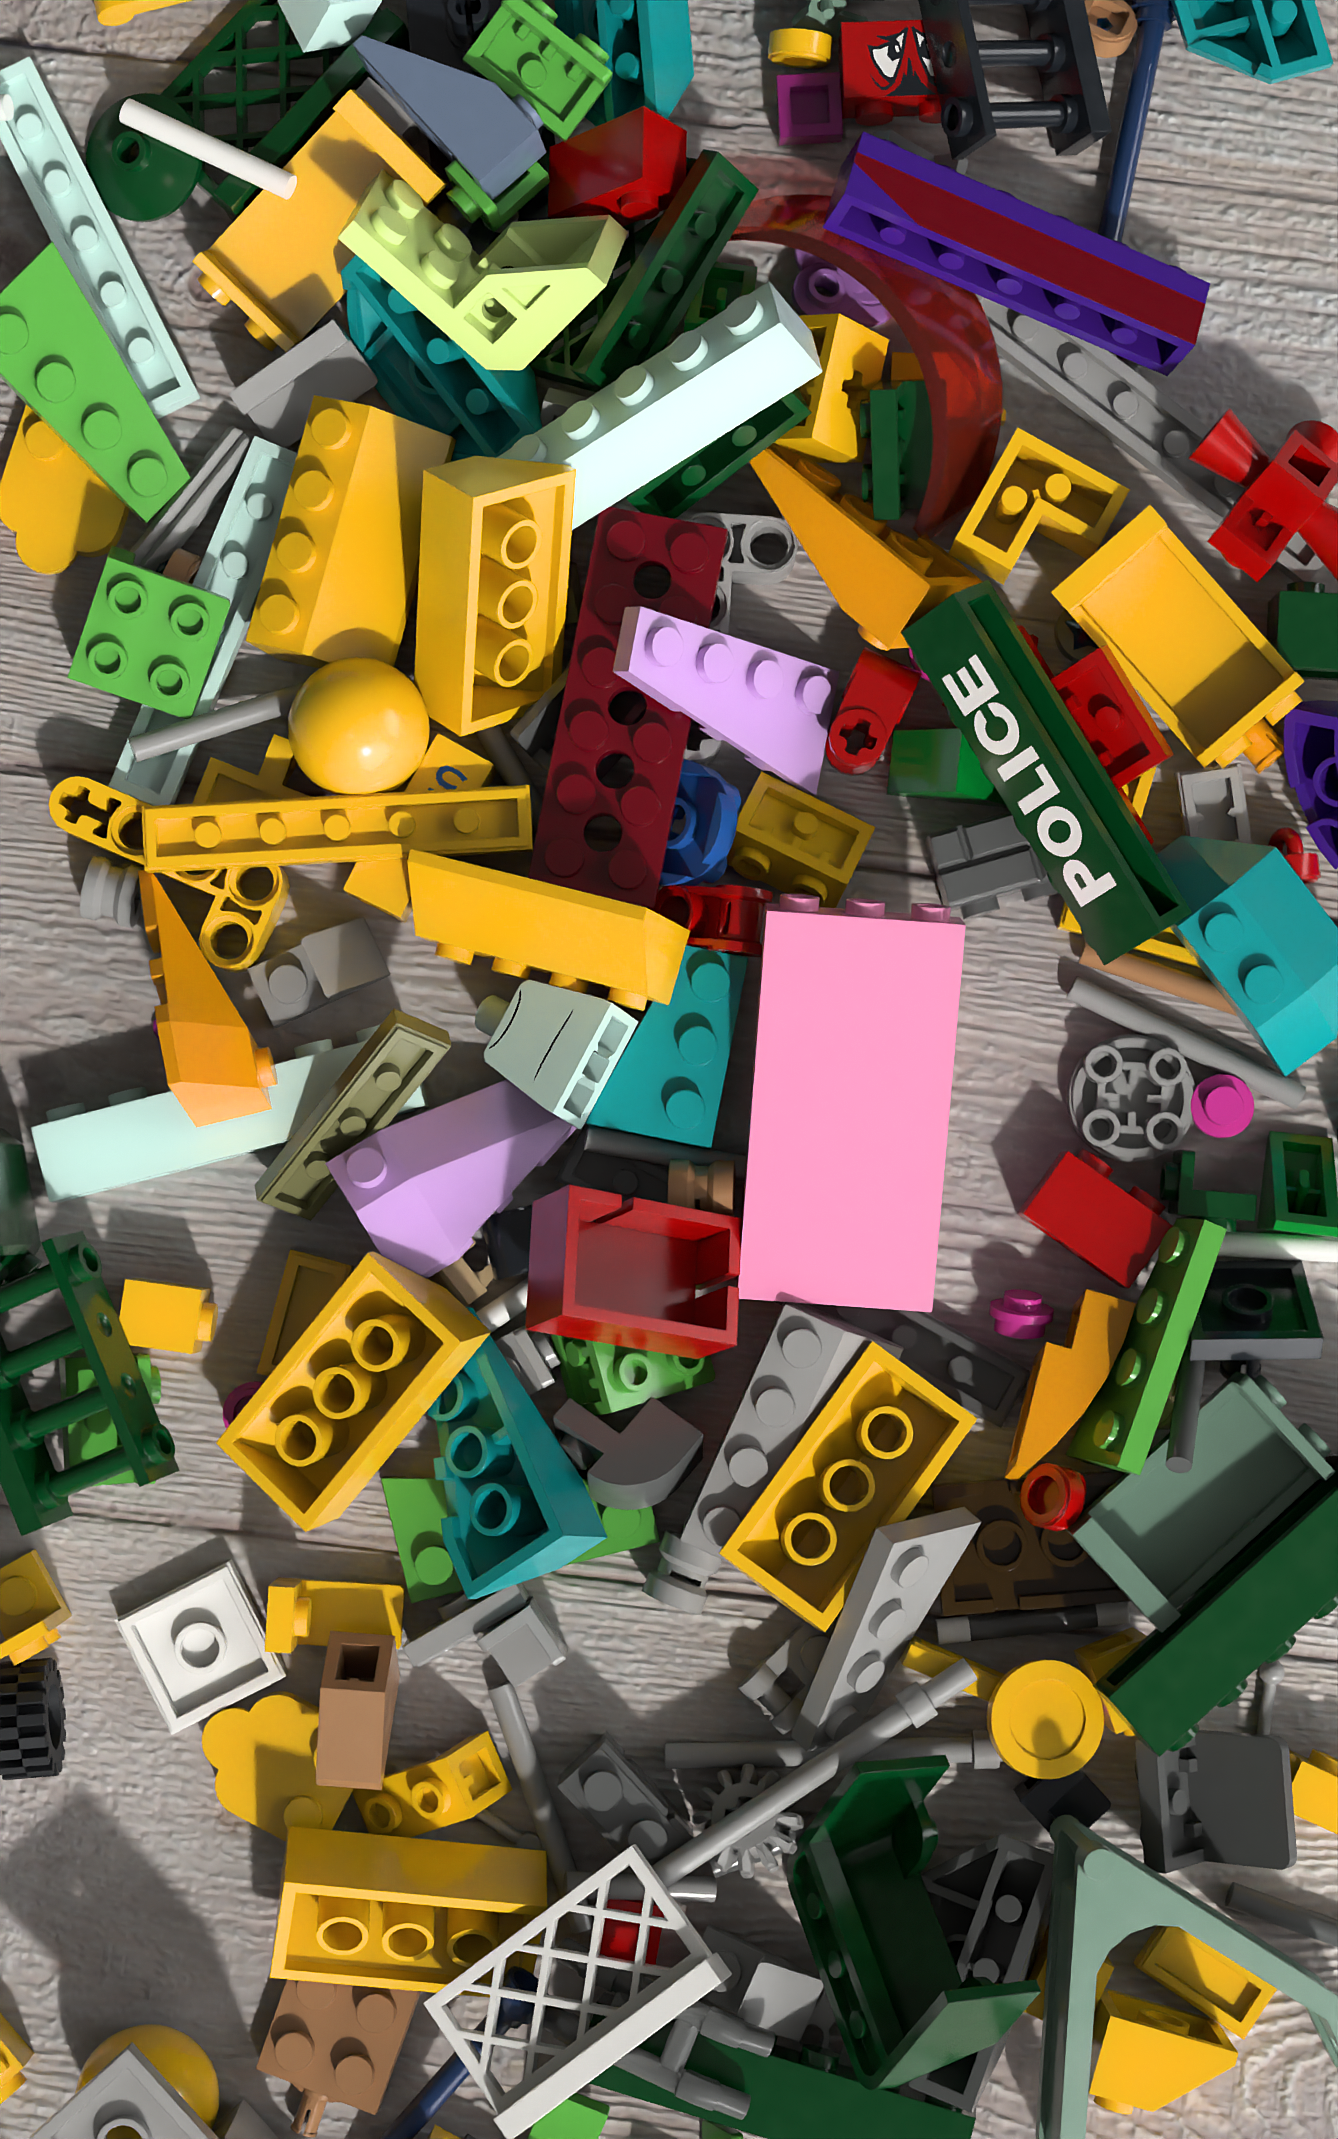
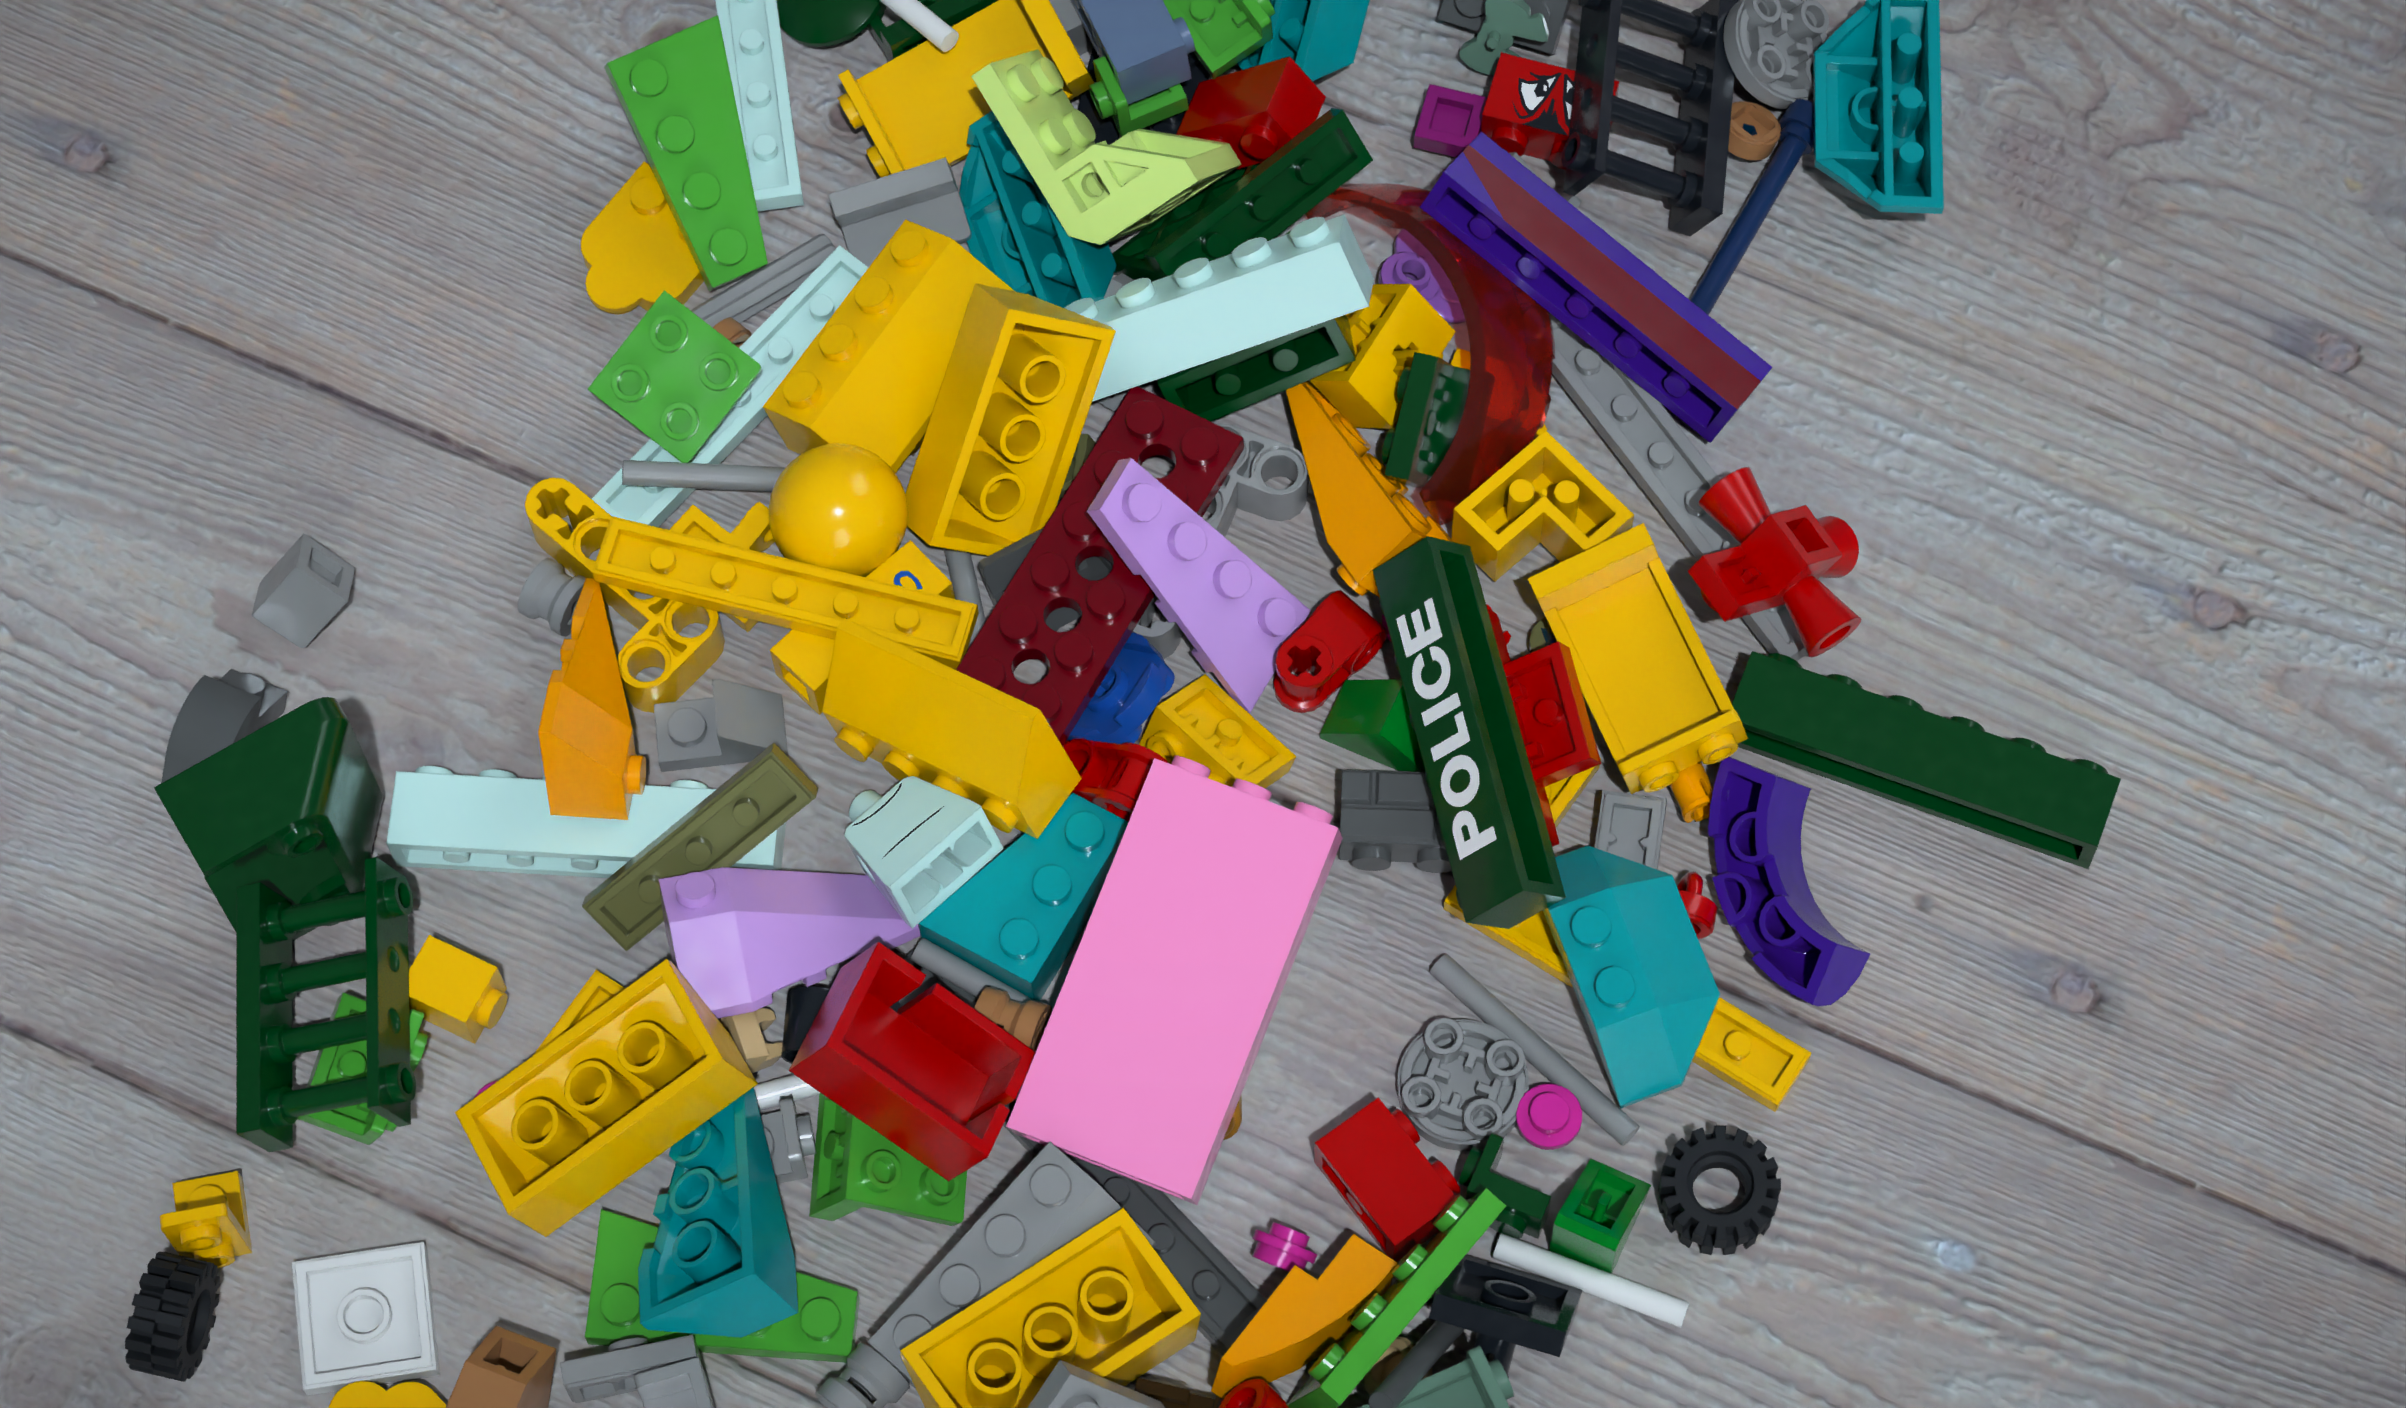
camera: 20 degrees right, 20 degrees down
(311, 1608) = (470, 1307): yellow bracket -> none
(634, 1466) = (853, 1263): dark grey brick -> none
(800, 48) = (1459, 69): yellow tile -> none
(1159, 977) = (1522, 976): medium nougat bar -> none

